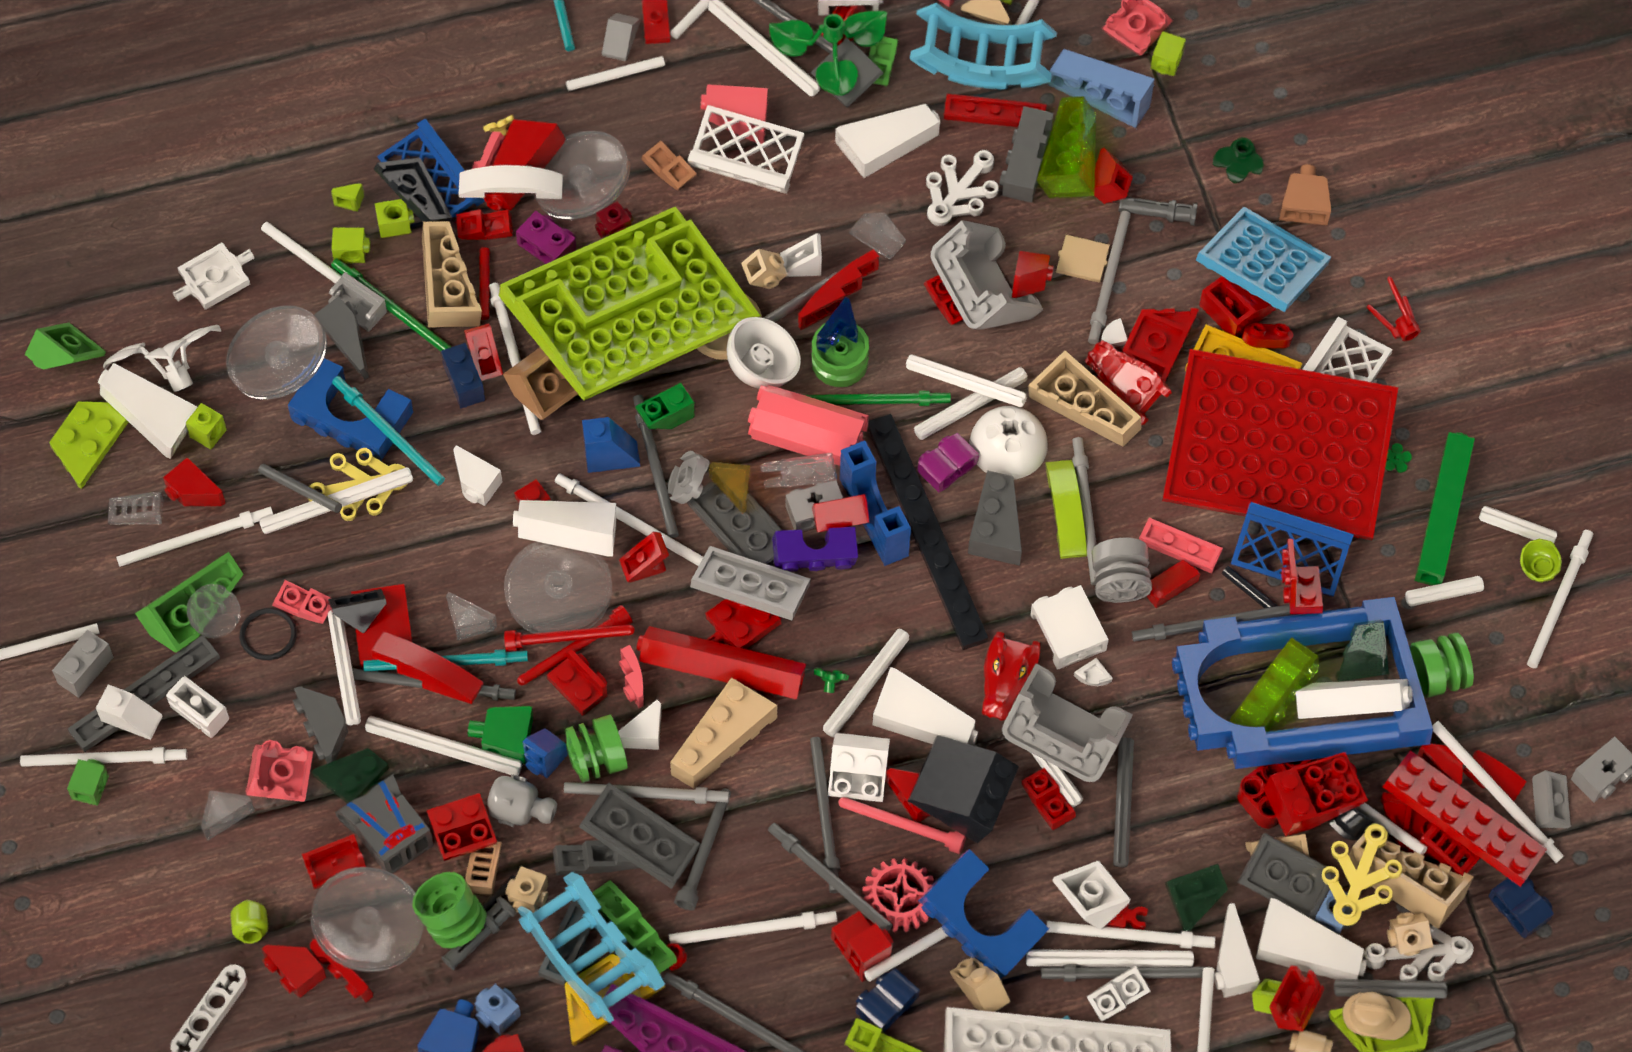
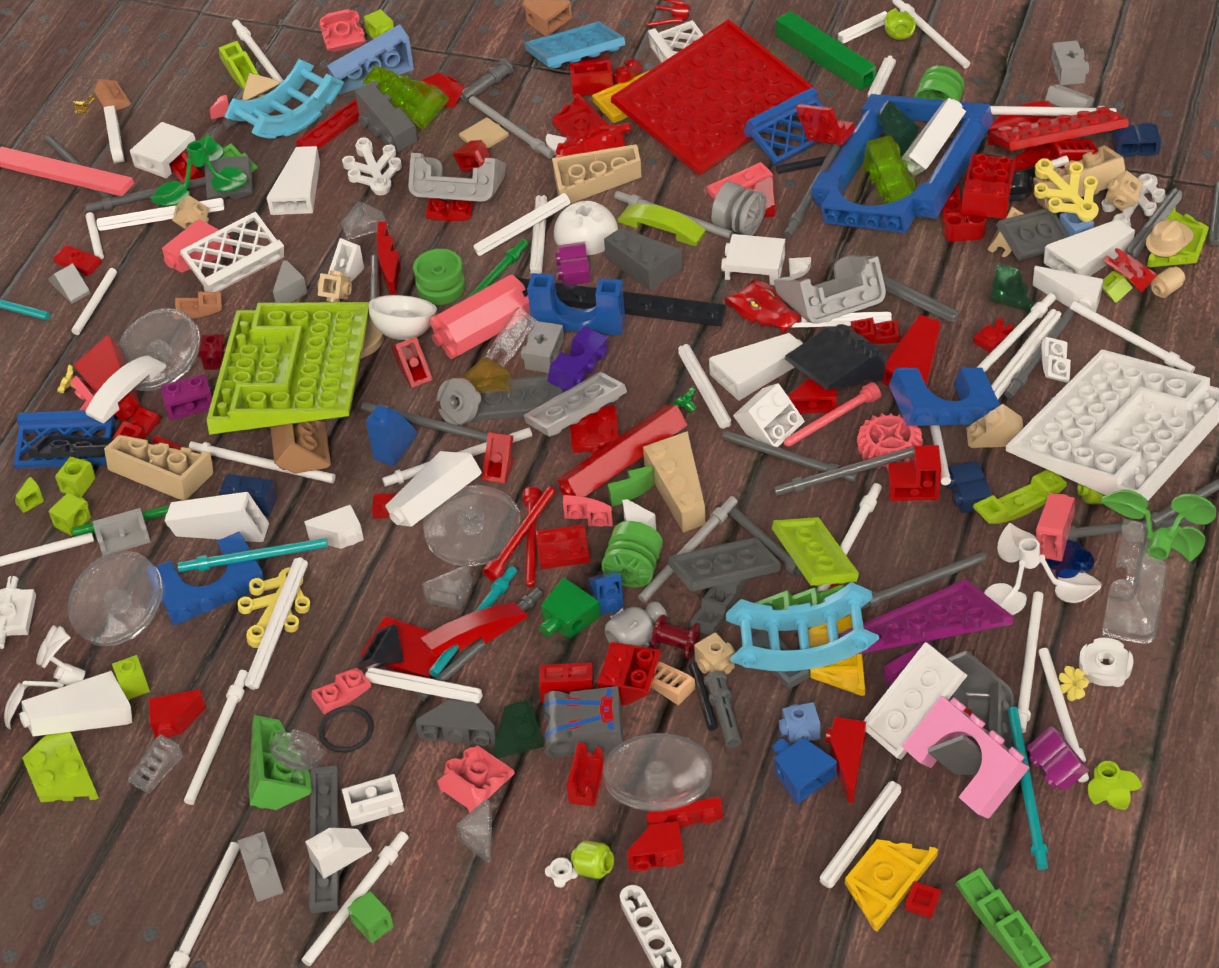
camera: 50 degrees left, 15 degrees down
(223, 896) = (557, 866): none -> white plate
(300, 488) = (244, 639): dark grey bar -> none
(344, 330) = (153, 548): dark grey slope -> none
(418, 371) = (218, 517): none -> white slope
(422, 782) = (565, 678): none -> red hinge
(443, 746) = (543, 657): white axle -> none
(449, 910) = (695, 707): bright green wheel -> none
(483, 351) = (236, 465): slope -> none
(531, 843) = (675, 636): none -> dark red hose
(667, 408) = (391, 386): green slope -> none
(695, 698) = (638, 483): none -> bright green slope
(704, 906) = (815, 551): none -> lime plate
(717, 402) = (412, 362): none -> red slope
(743, 226) = (289, 284): none -> light grey slope
(774, 75) = (189, 211): none -> tan brick
(840, 323) = (427, 252): clear blue slope -> none
(841, 513) = (566, 327): slope -> none
(1031, 856) = (915, 349): none -> red slope
(1093, 893) = (972, 334): white slope -> none
(1239, 163) = (487, 31): dark green plate -> none

